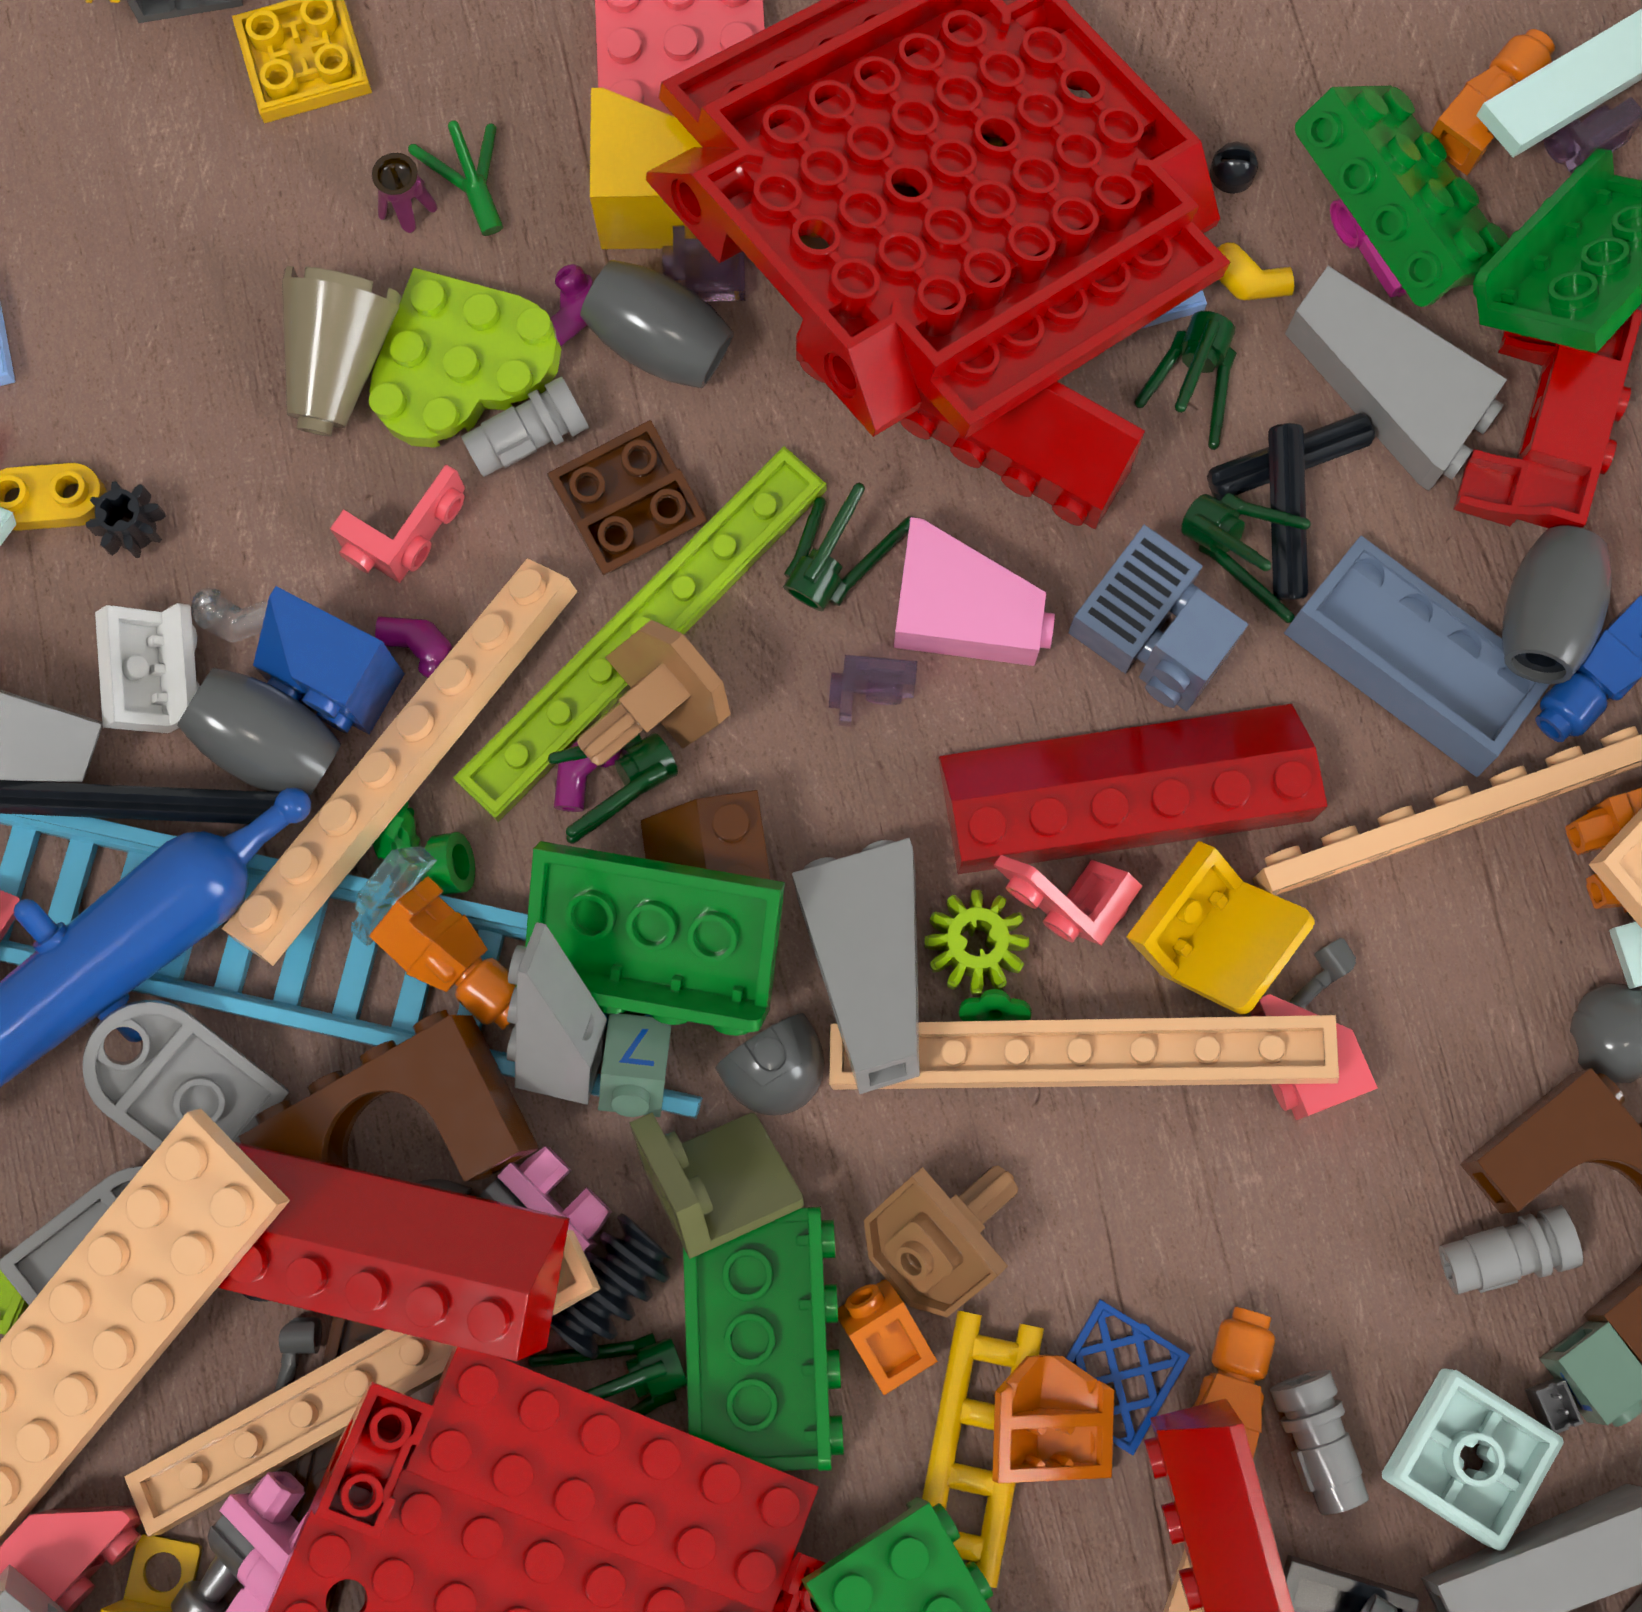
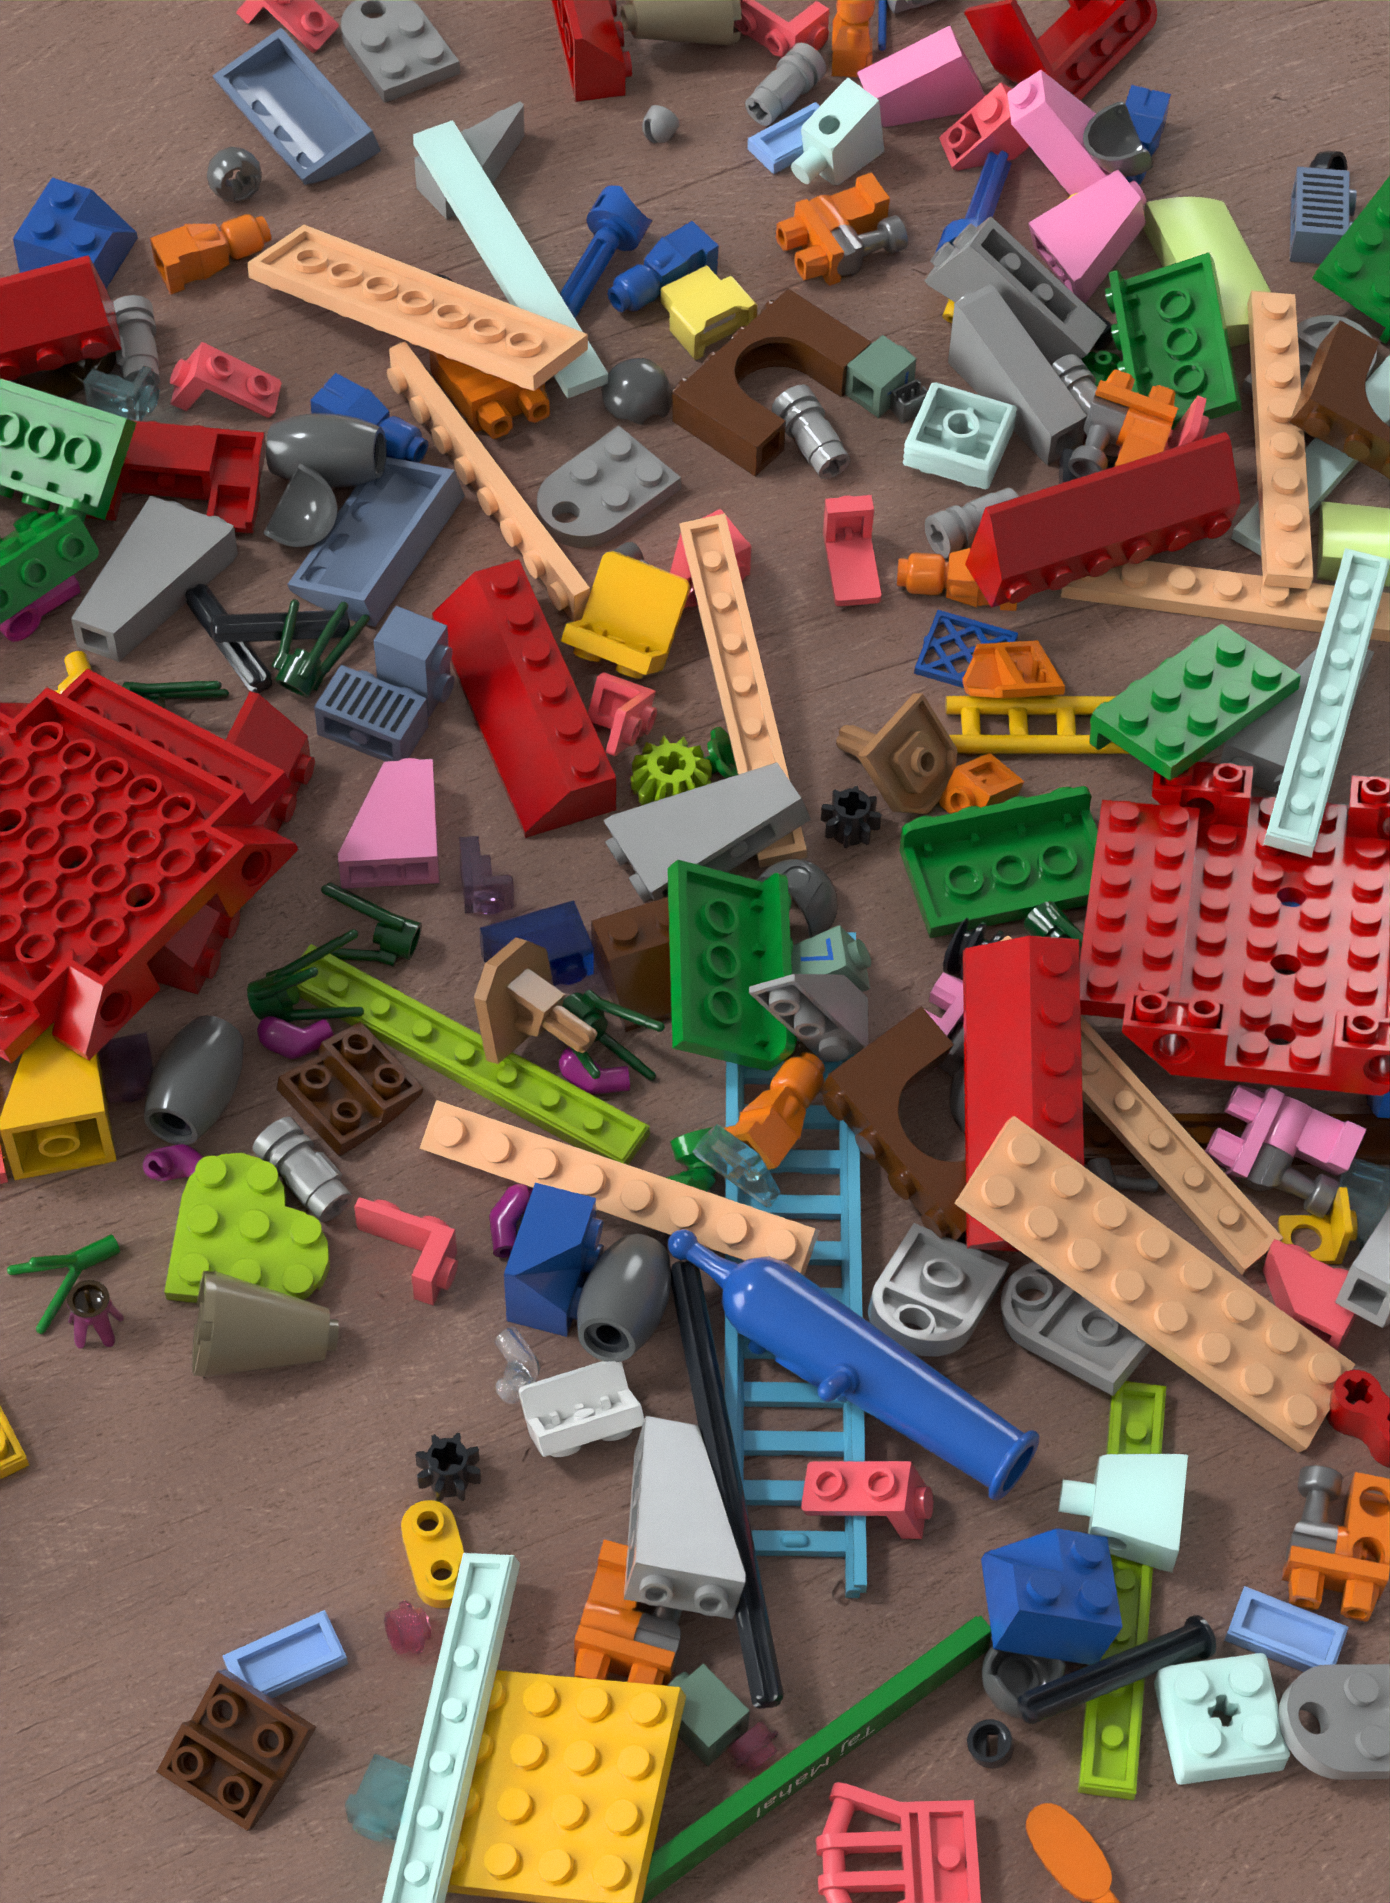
camera: 105 degrees left, 20 degrees down
(700, 444) = (291, 1040): none -> magenta arm
(717, 1181) = (901, 902): olive bracket -> none
(756, 435) = (279, 990): none -> dark green plant
(758, 741) = (553, 928): none -> clear blue slope
(863, 1138) = (851, 817): none -> black gear
(1290, 1256) = (850, 550): none -> coral bracket
(1461, 564) = (304, 511): none -> dark grey helmet
(1462, 959) = (605, 489): none -> light grey plate

